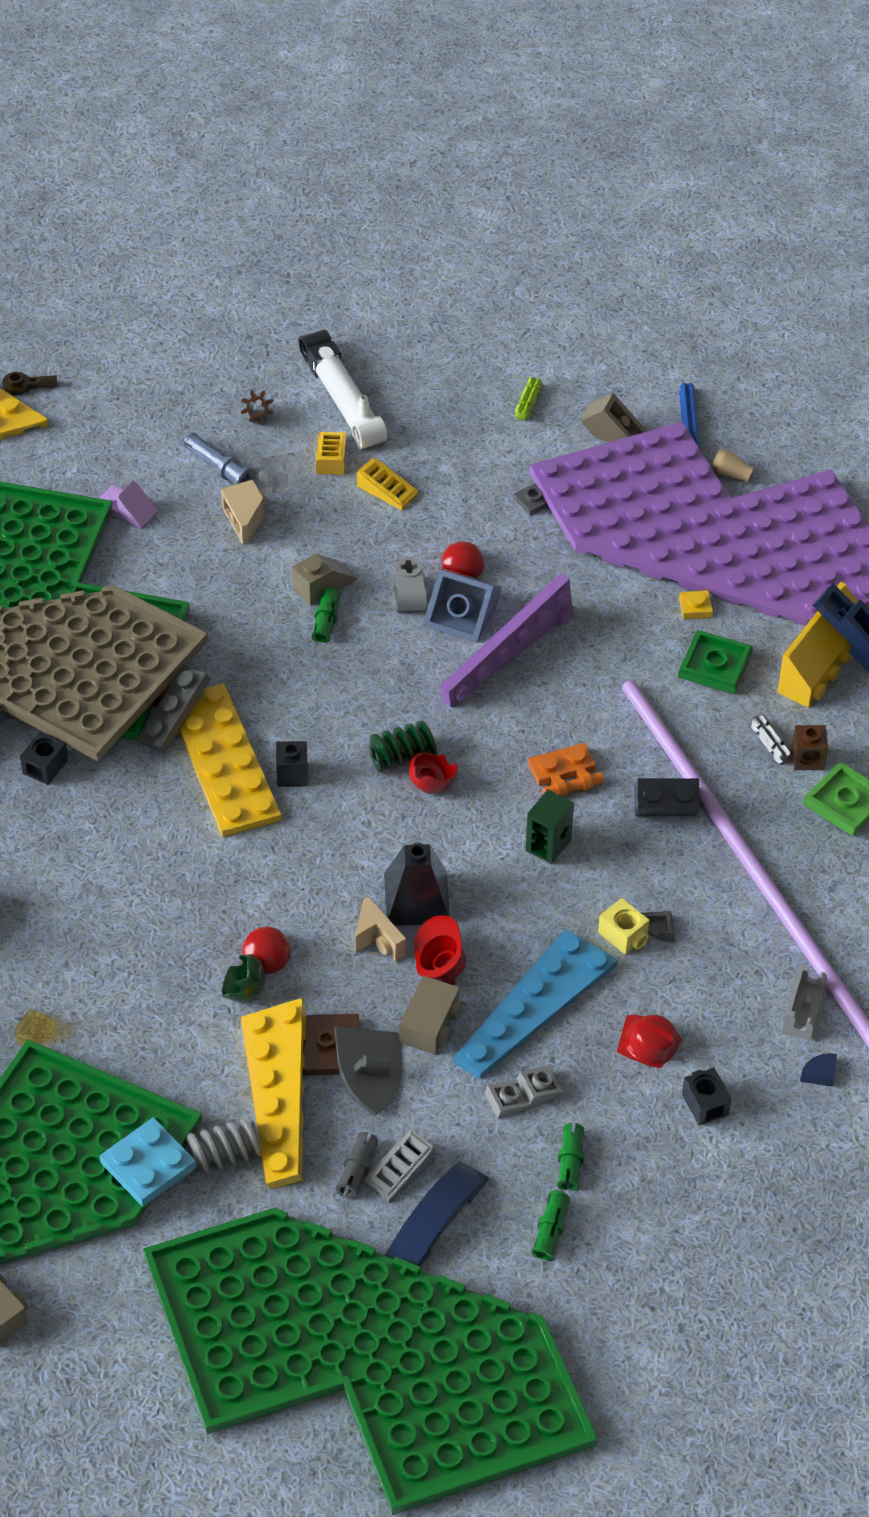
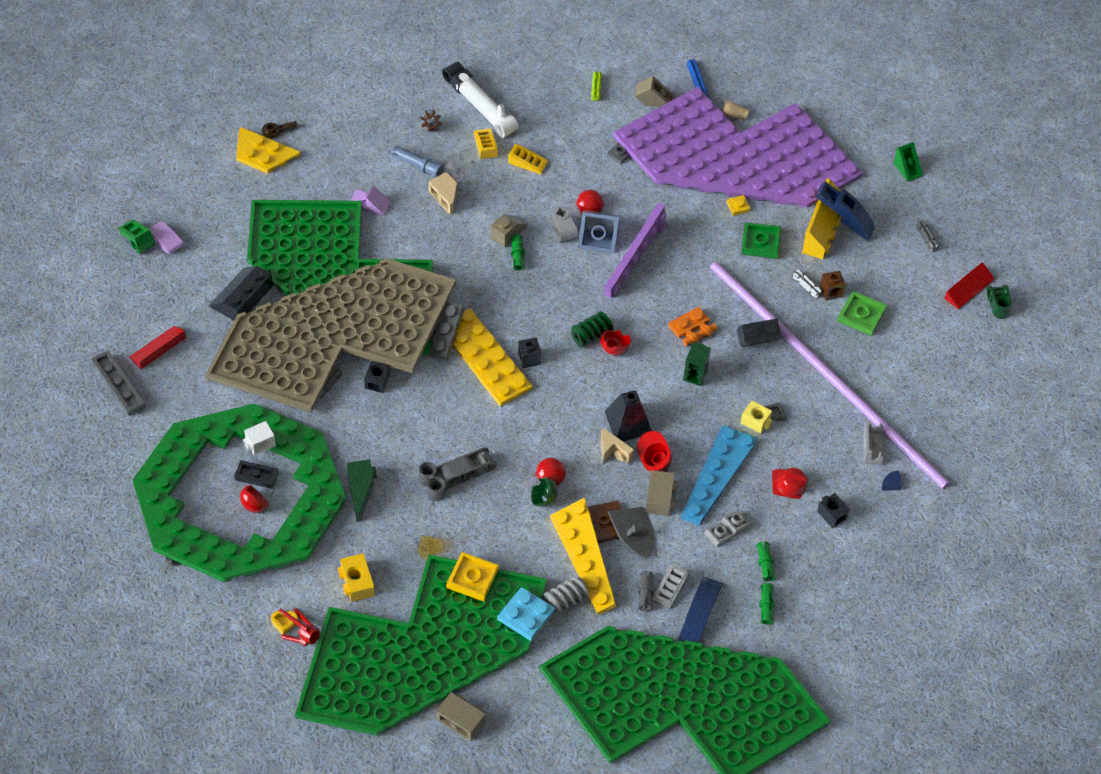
camera: 15 degrees left, 5 degrees up
(83, 1086) = (472, 576): none -> yellow tile
(113, 922) = (454, 472): none -> dark grey piece

